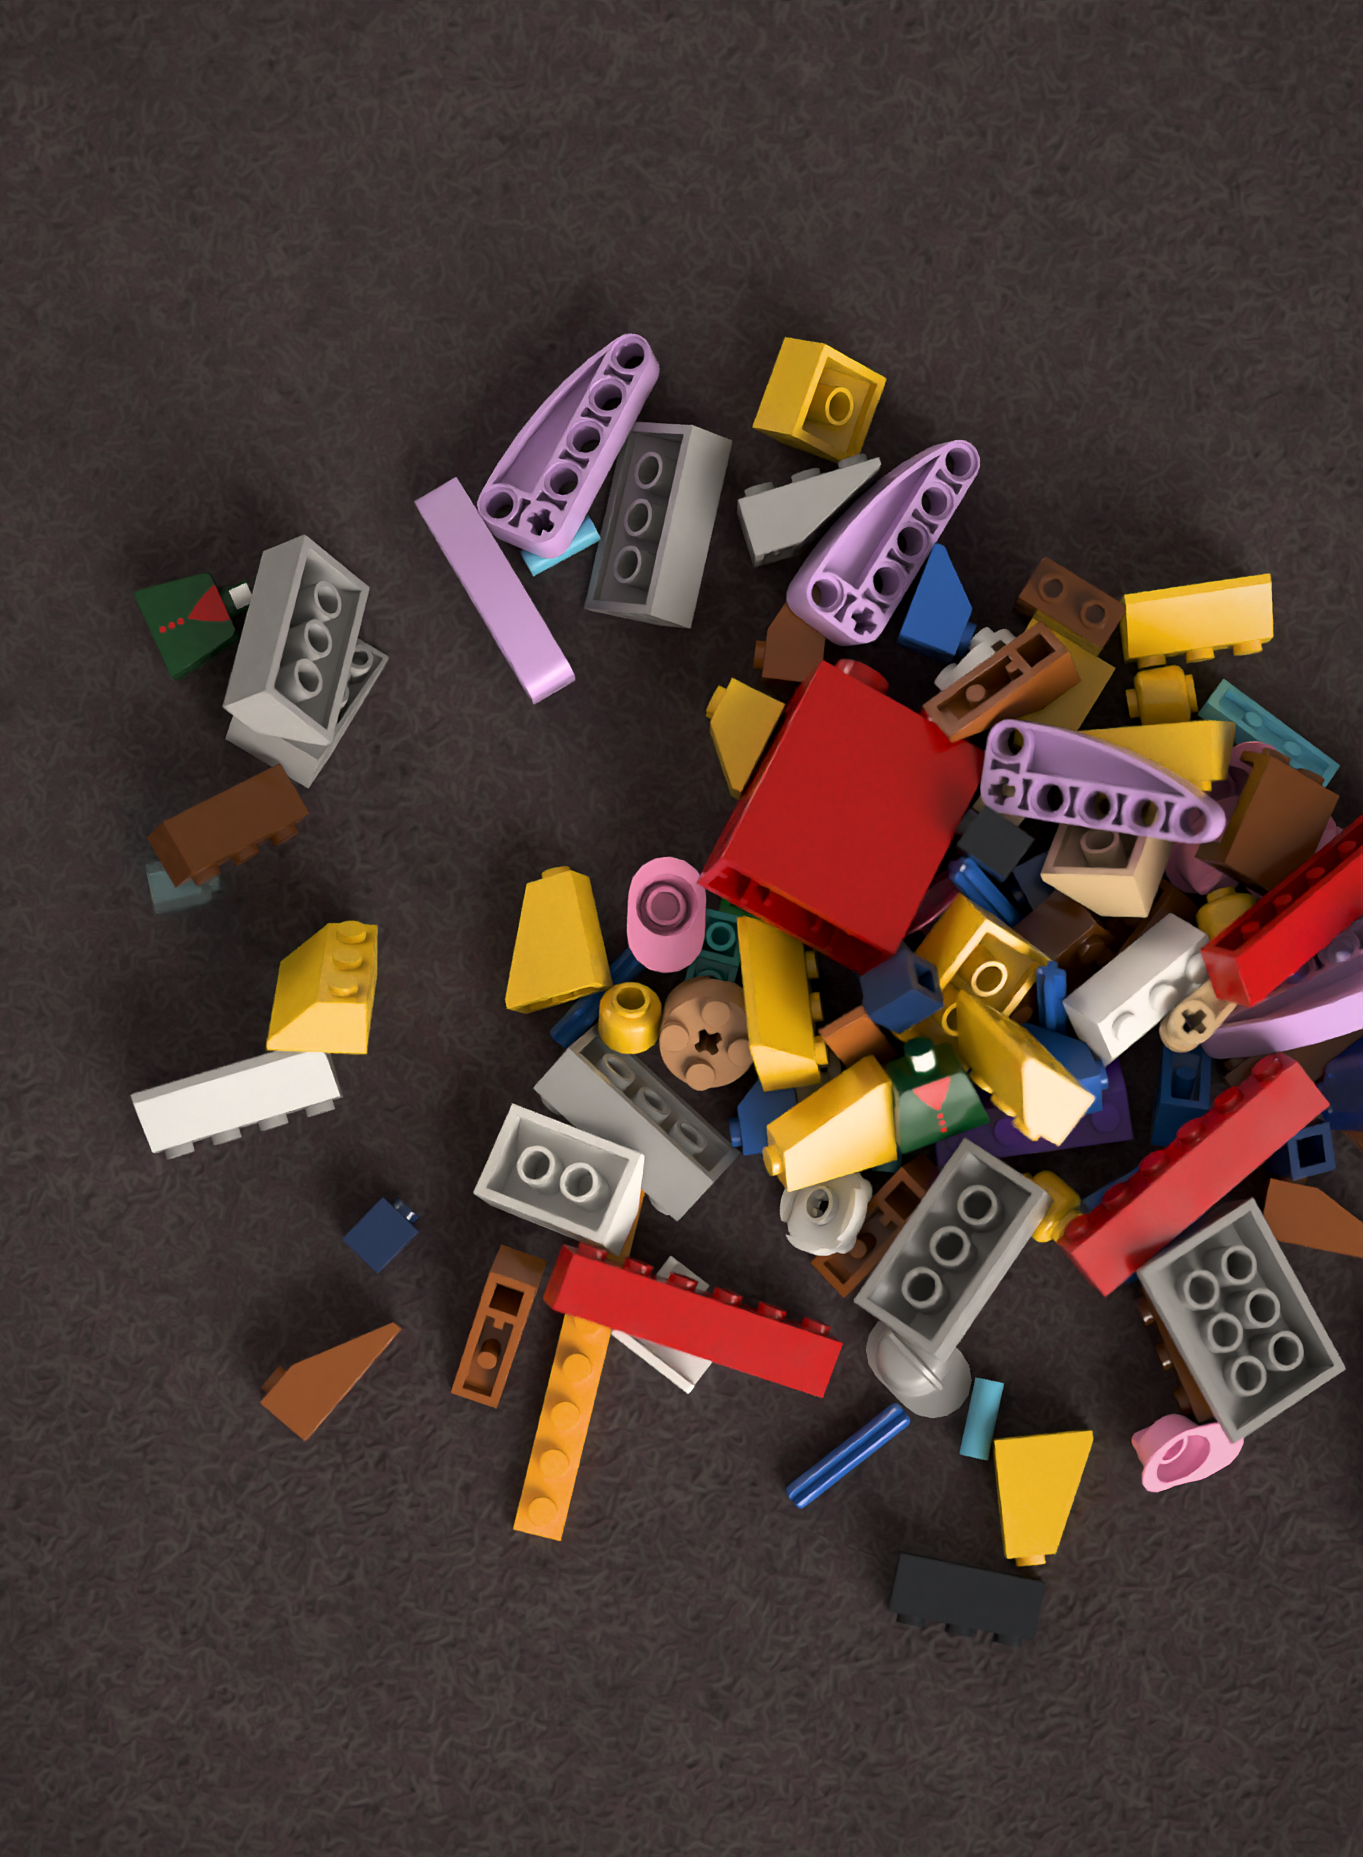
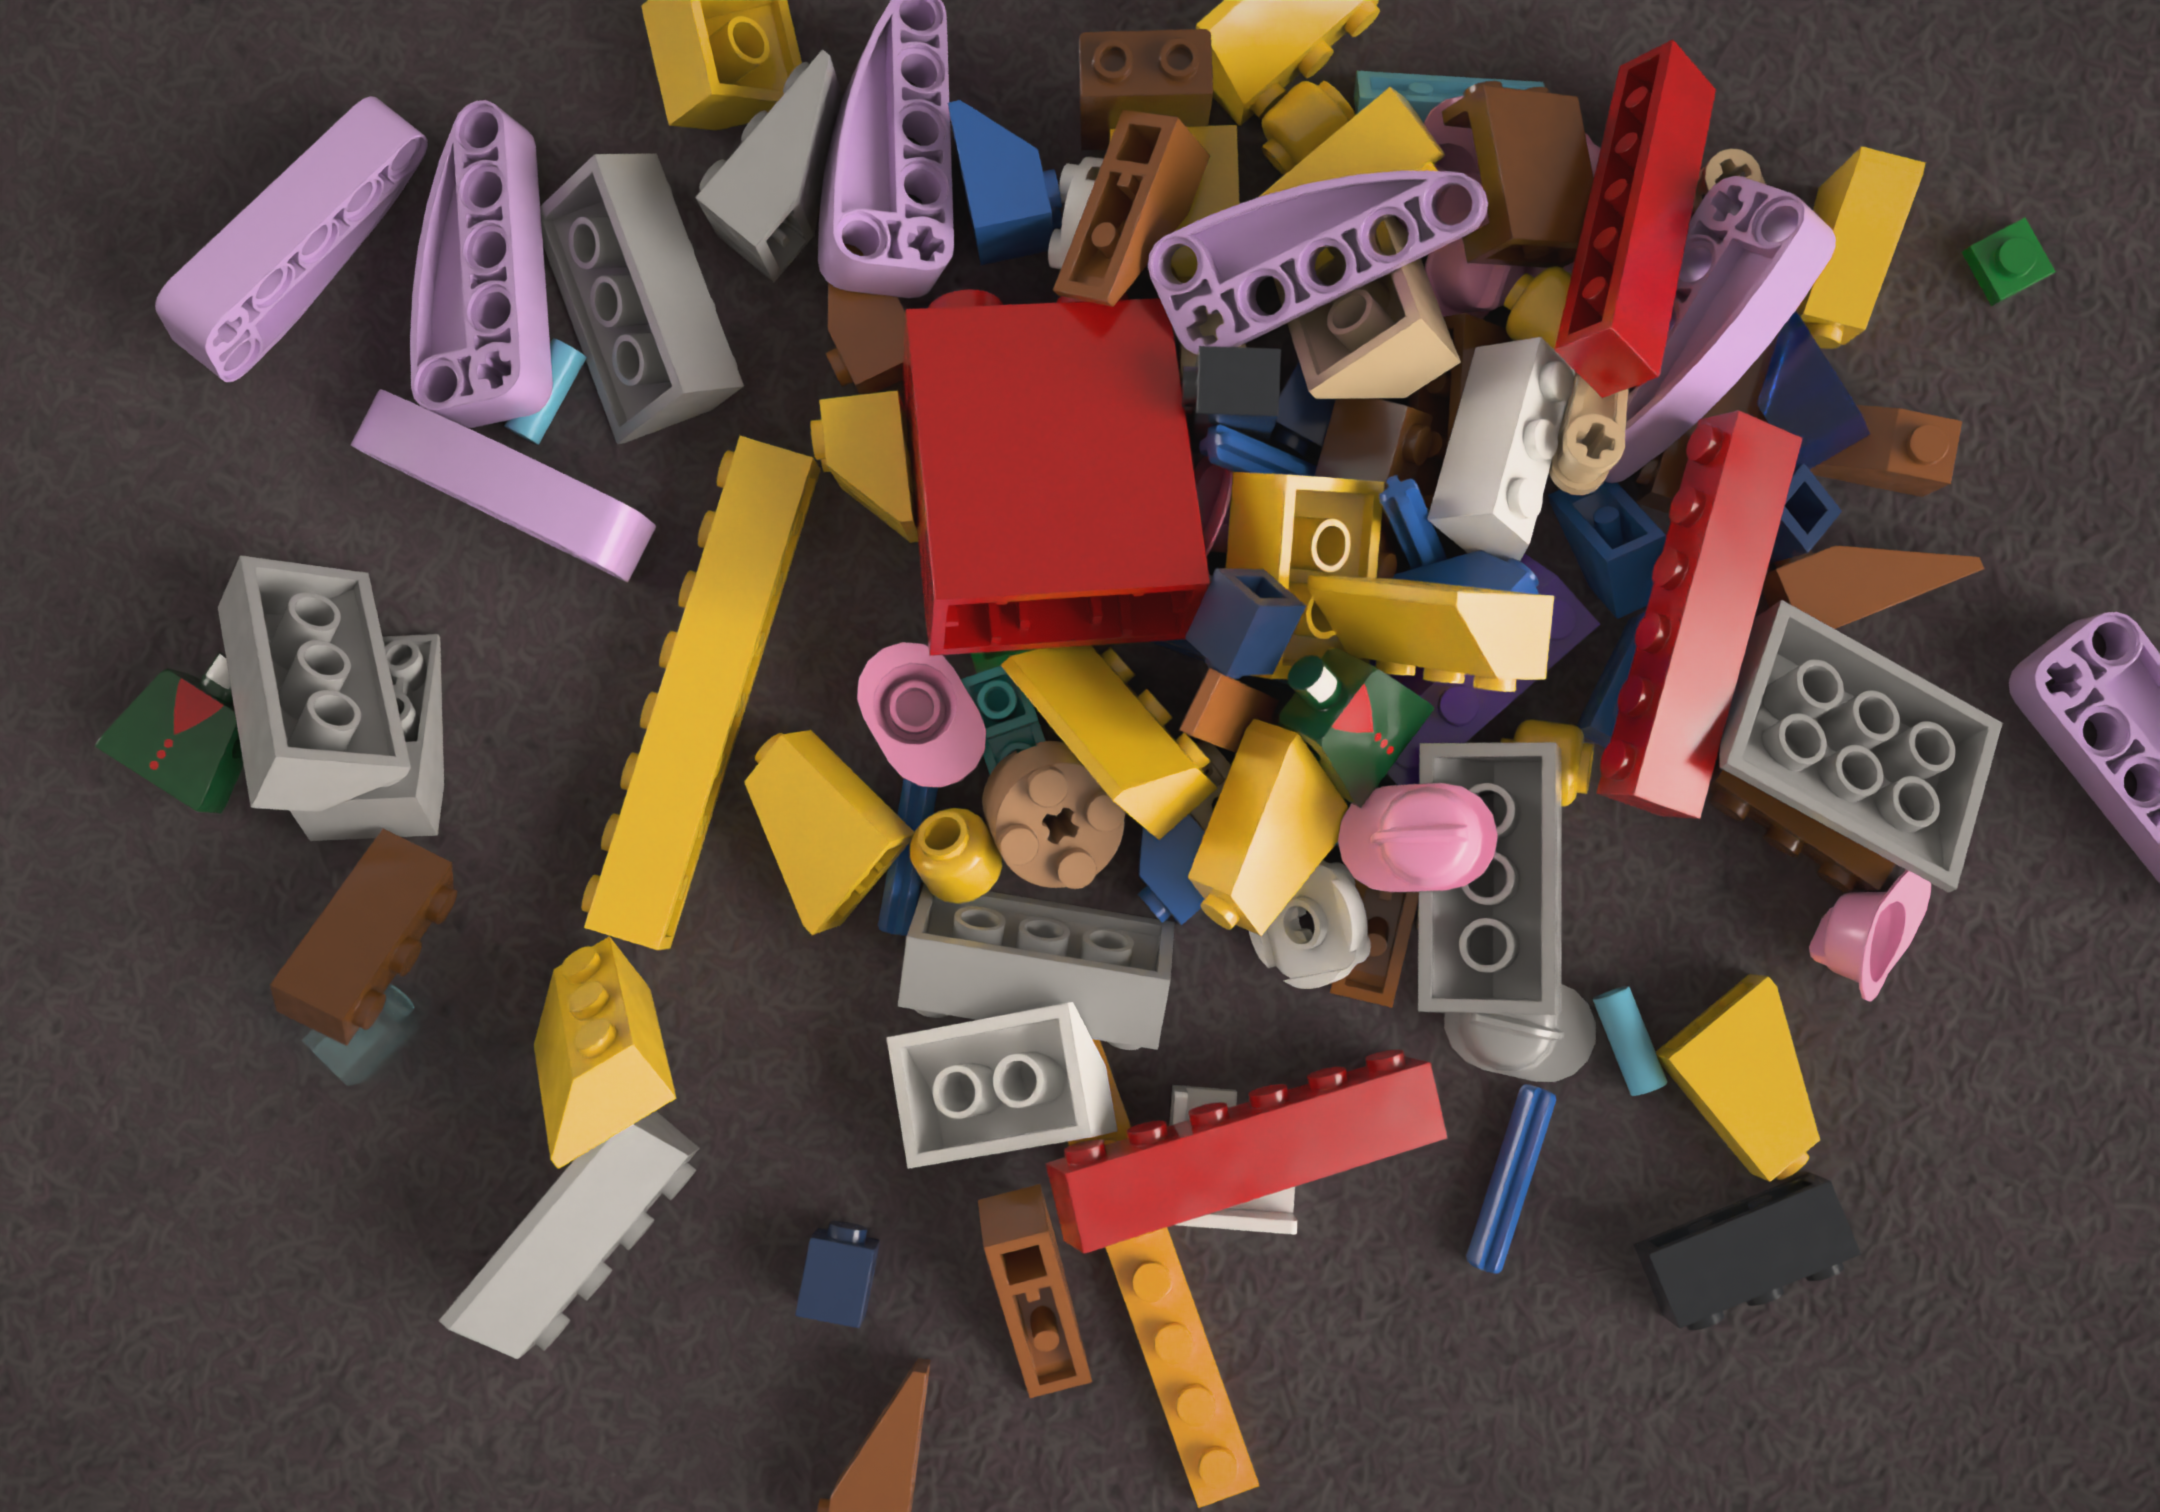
camera: 30 degrees left, 0 degrees up
(465, 346) = (290, 241): none -> lavender beam
(536, 808) = (701, 695): none -> yellow brick
(924, 1195) = (1418, 838): none -> bright pink piece

